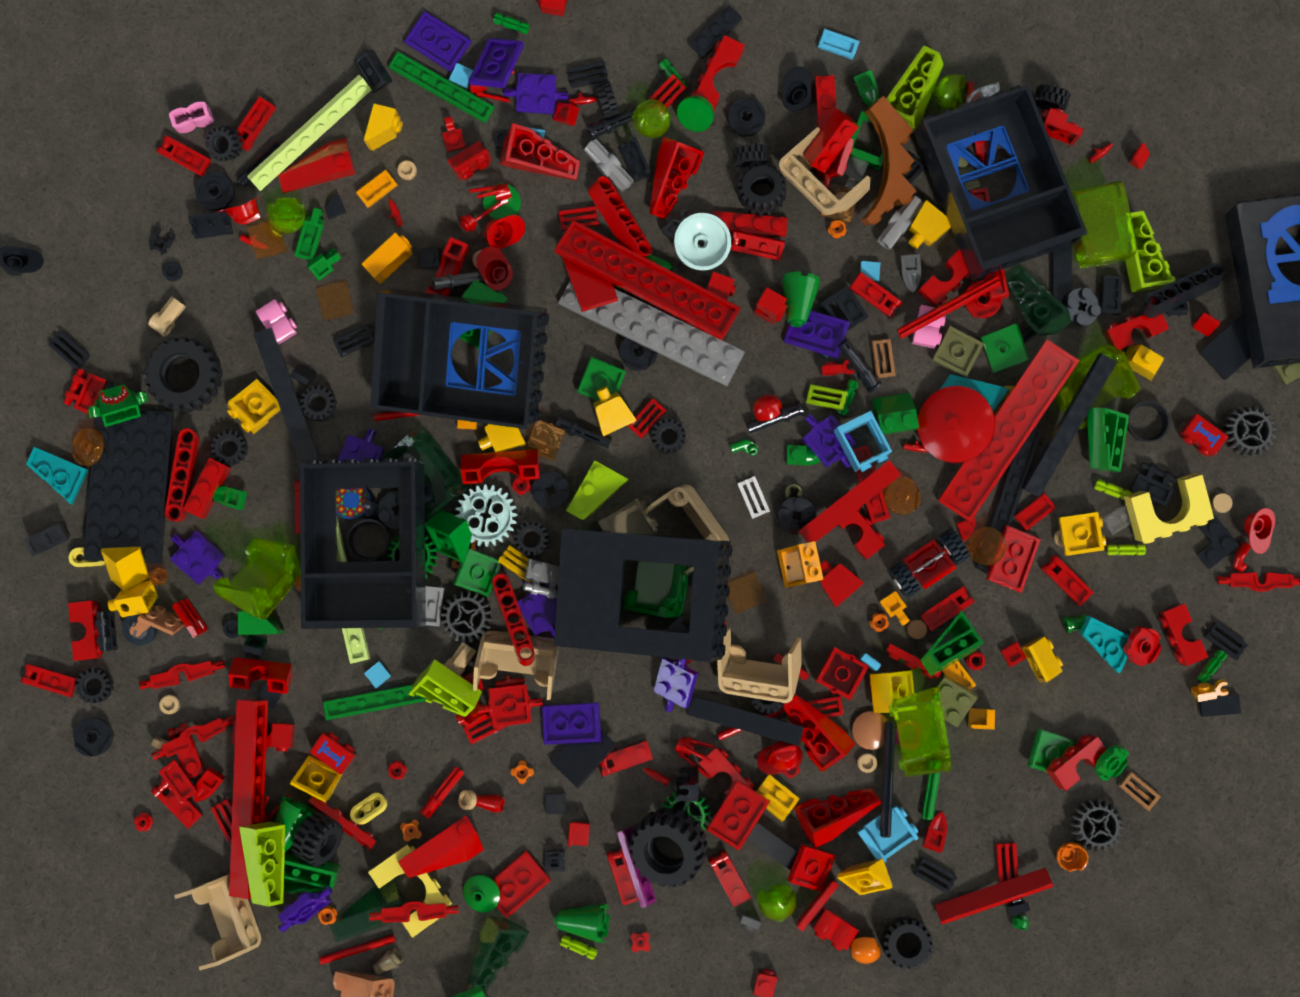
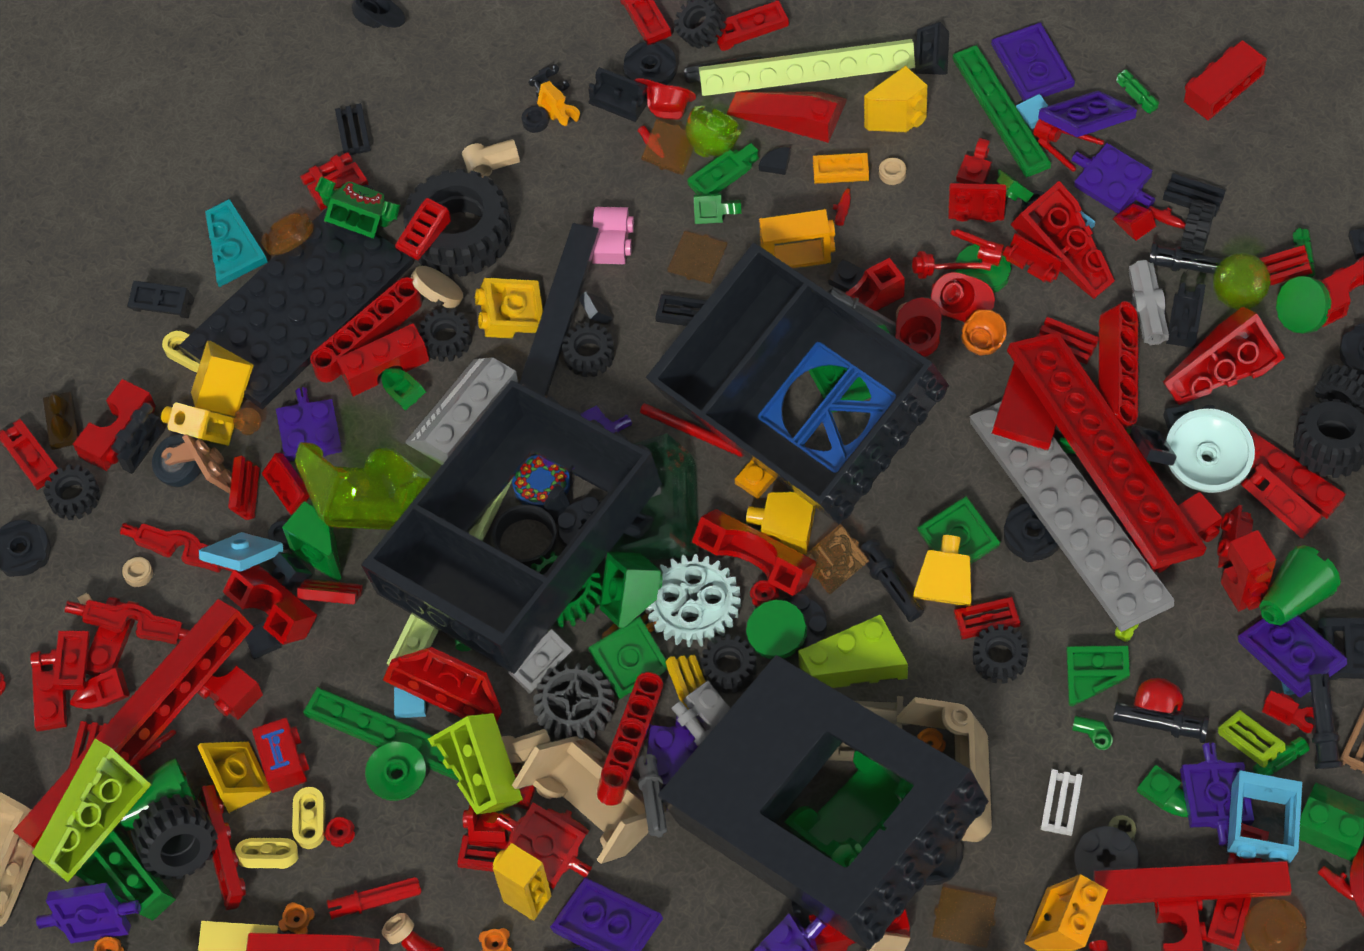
camera: 40 degrees right, 25 degrees down
(50, 647) = (60, 419): none -> dark brown tile
(176, 254) = (553, 102): none -> light orange plate
(179, 400) = (428, 212): none -> red slope
(203, 423) = (436, 286): none -> tan tile
(208, 598) = (285, 482): none -> red plate
(221, 658) = (240, 551): none -> medium azure plate
(276, 488) = (461, 408): none -> light grey slope
(286, 644) = (330, 591): none -> red tile
(375, 774) = (308, 819): none -> light yellow plate
(395, 655) = (444, 682): none -> red wedge
(397, 728) = (393, 758): none -> green dish
(483, 137) = (1013, 187): none -> green plate
(516, 737) = (521, 881): none -> yellow brick
(519, 179) = (1042, 263): none -> red hinge
(532, 246) = (984, 332): none -> orange hair
(544, 504) = (776, 629): none -> green tile
(544, 639) = (650, 784): none -> dark grey axle
(660, 510) = (934, 736): none -> orange plate
(672, 260) = (1153, 445): none -> black plate
(723, 412) = (1094, 670): none -> green wing
(742, 276) = (1234, 525): none -> red hinge

